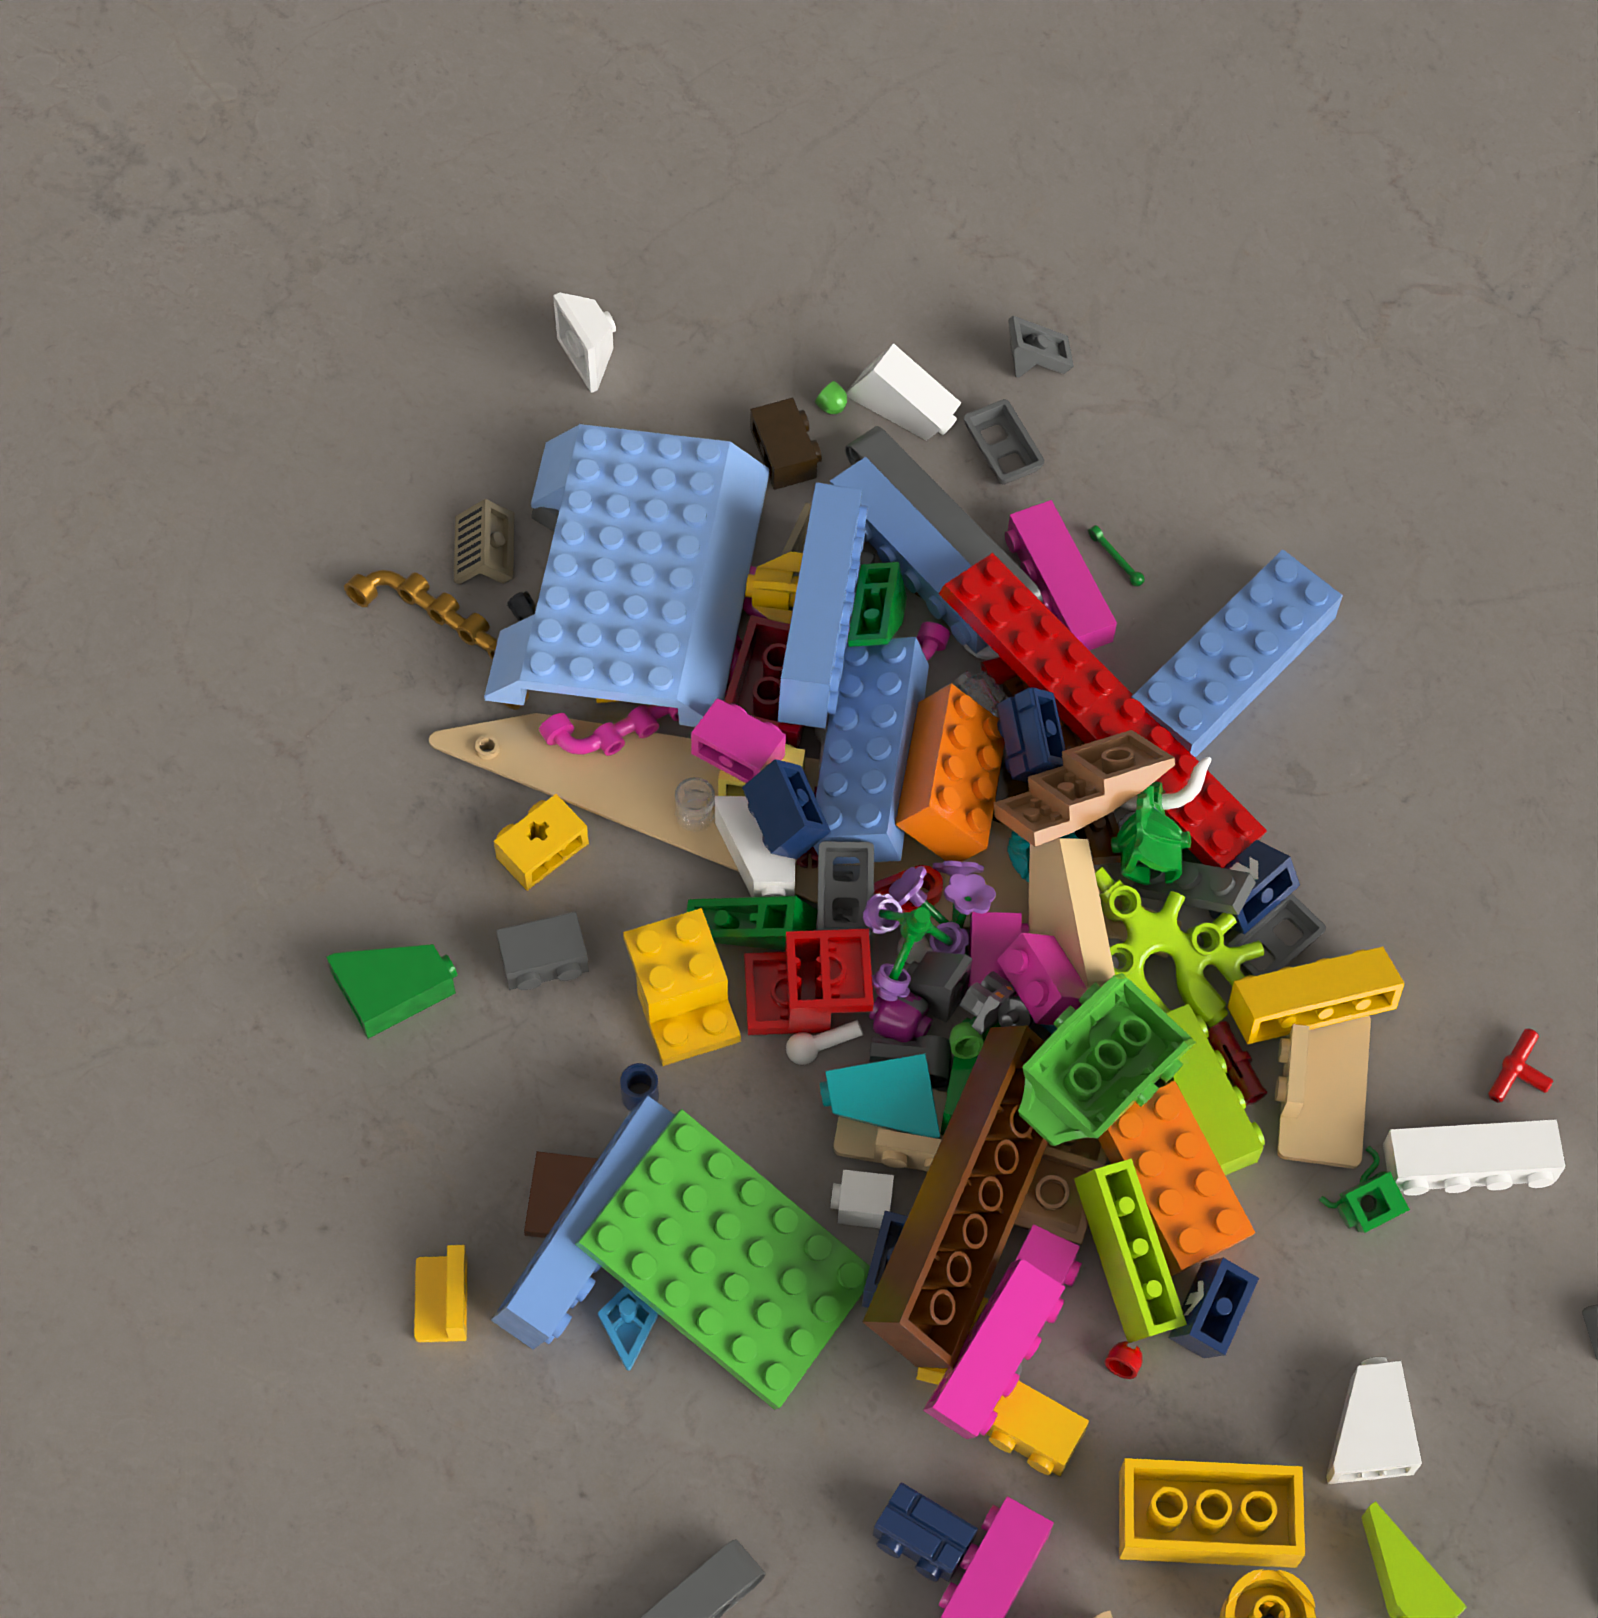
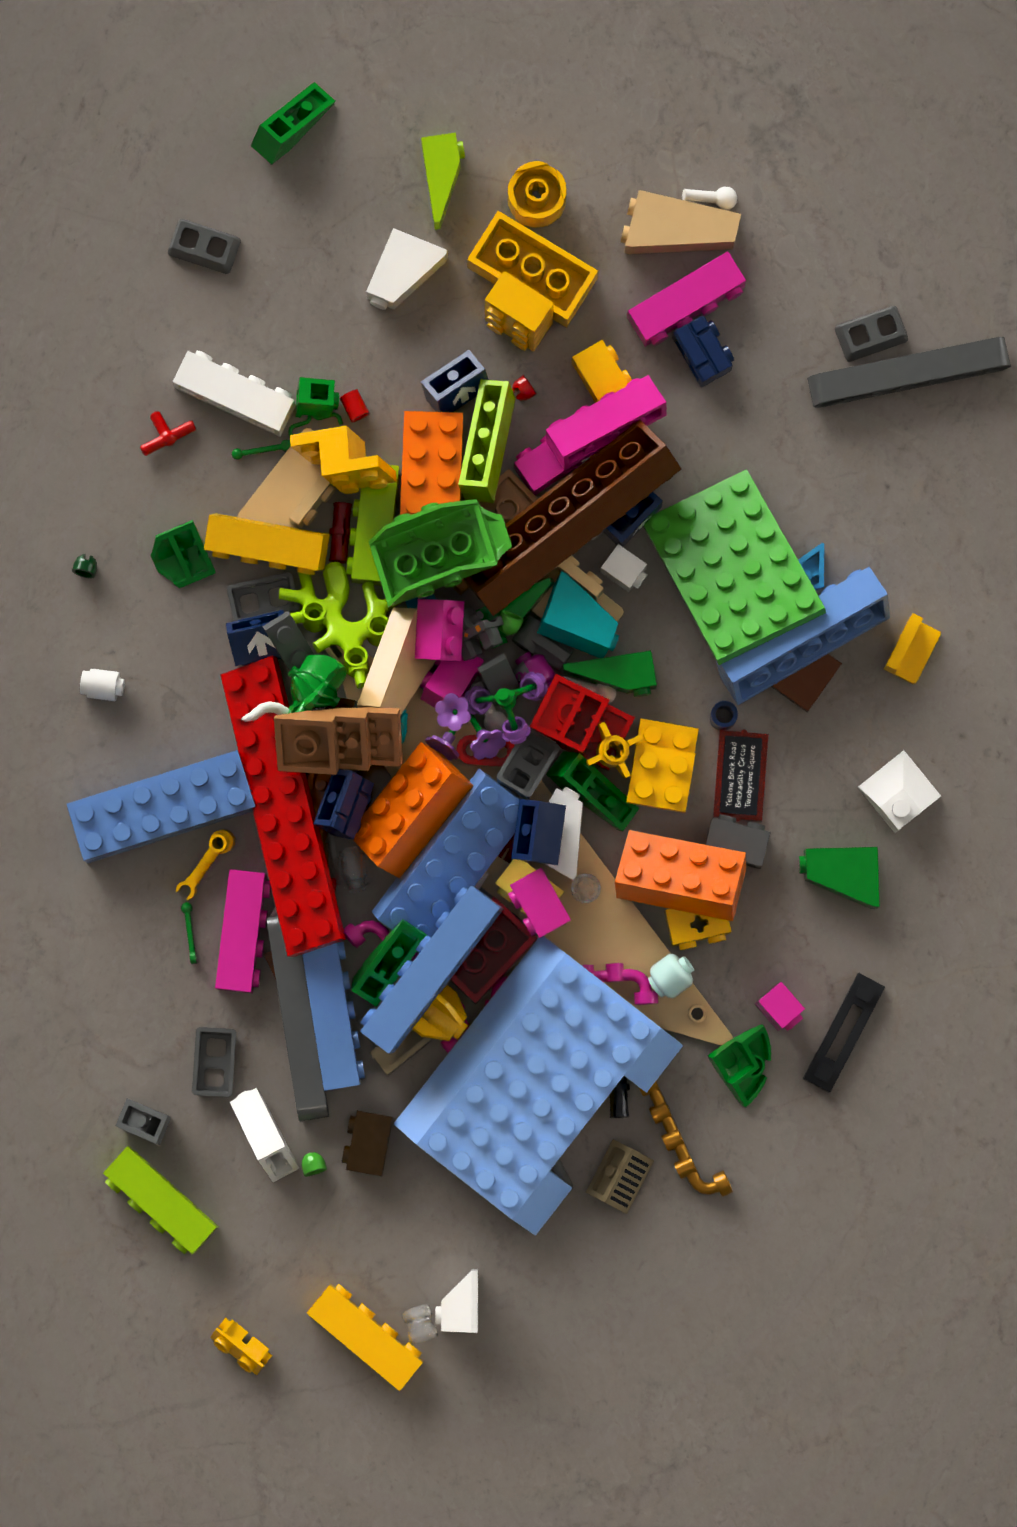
camera: 150 degrees left, 20 degrees up
(300, 866) = (824, 1071): none -> black container
(368, 1112) = (899, 791): none -> white slope
(390, 788) = (780, 1007): none -> dark pink brick
(403, 722) = (743, 1062): none -> green brick
(540, 760) = (671, 975): none -> light aqua head
(579, 1037) = (740, 775): none -> black piece
(589, 866) = (680, 875): none -> orange brick
(622, 303) = (419, 1324): none -> clear wheel
(674, 268) = (365, 1337): none -> yellow brick
(750, 958) = (621, 747): none -> yellow brick
(787, 200) = (247, 1355): none -> yellow hinge
(795, 1071) = (625, 673): none -> green slope
(970, 288) = (160, 1200): none -> lime brick
(1144, 657) = (211, 854): none -> yellow brick
(1195, 1423) = (518, 312): none -> yellow brick
(1289, 1118) = (343, 459): none -> yellow bracket
(1319, 1223) = (354, 405): none -> red hinge
(1392, 750) = (102, 684): none -> white brick
(1404, 934) = (181, 555): none -> green slope
(1419, 1092) = (238, 453): none -> green hinge
(1503, 869) = (84, 567): none -> dark green hinge

